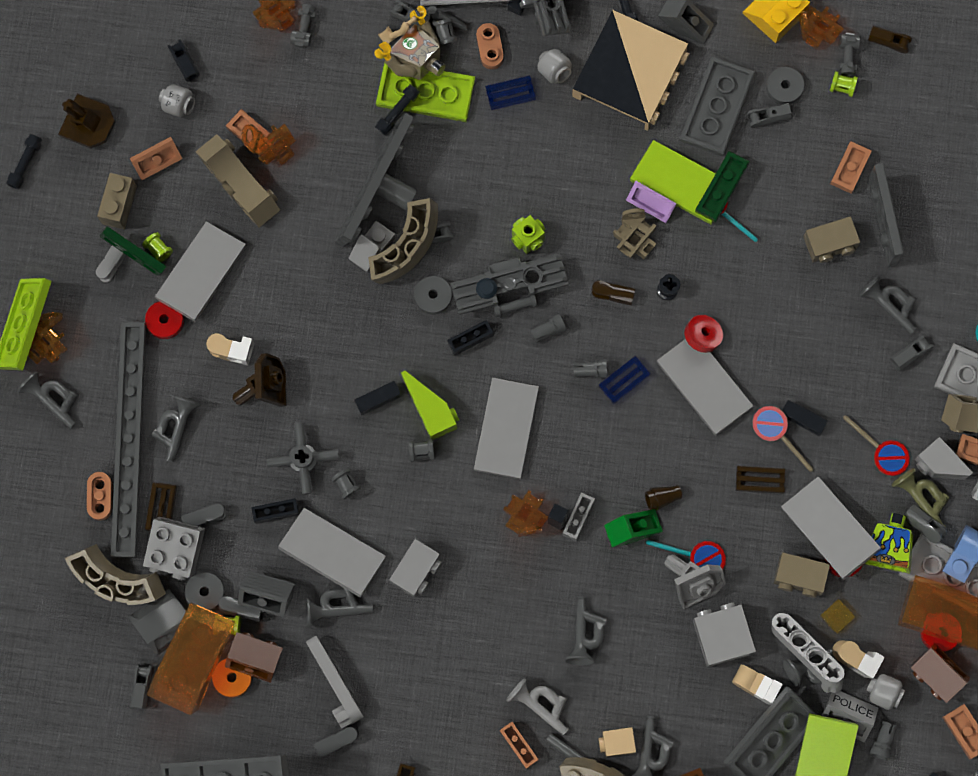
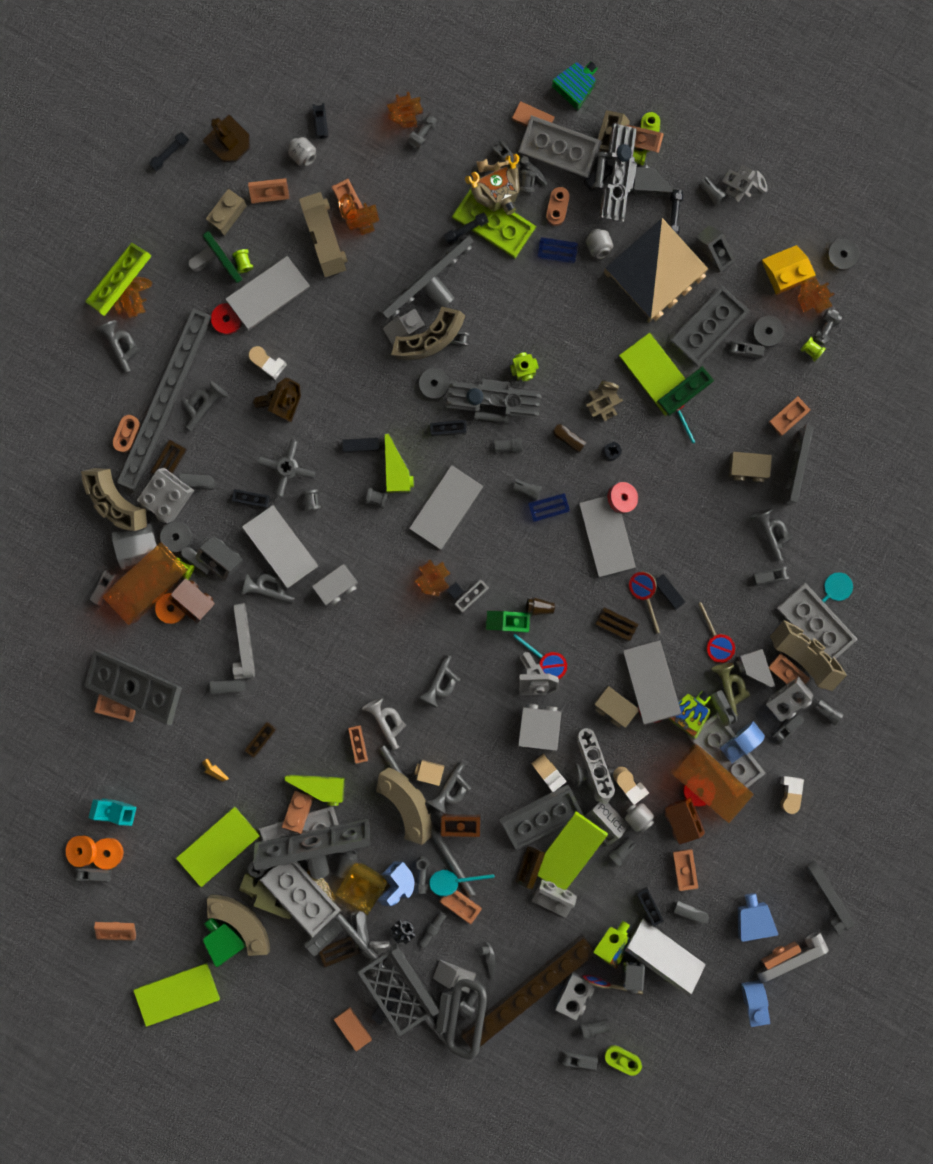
camera: 25 degrees right, 10 degrees up
(651, 201) = (627, 380): lavender tile -> none
(837, 616) = (629, 747): clear yellow tile -> none
(885, 38) = (861, 325): dark brown bar -> none

